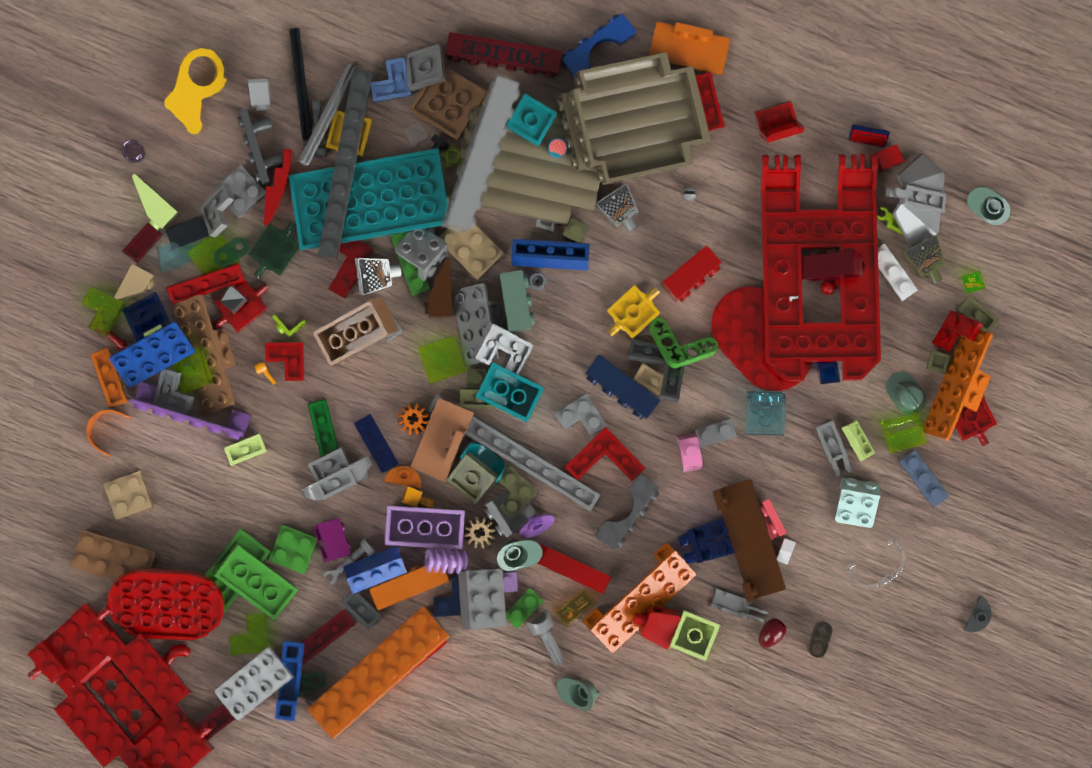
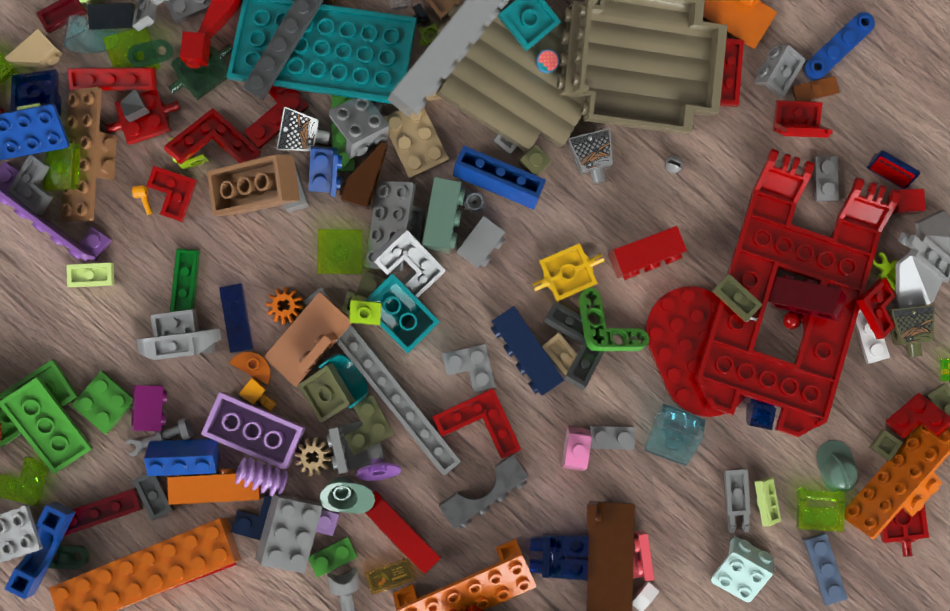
camera: 20 degrees right, 0 degrees up
(267, 236) = (195, 49): none -> red brick
(307, 294) = (210, 127): none -> red plate
(406, 297) = (323, 170): none -> blue bracket
(482, 400) = (365, 311): none -> lime bracket
(554, 312) = (481, 242): none -> light grey brick
(748, 85) = (780, 69): none -> light grey bracket
(775, 285) = (737, 297): none -> olive plate
(784, 90) = (816, 89): none -> dark orange piece
(790, 48) = (839, 46): none -> blue plate
(817, 162) = (826, 179): none -> light grey plate
(888, 254) = (873, 306): none -> red plate

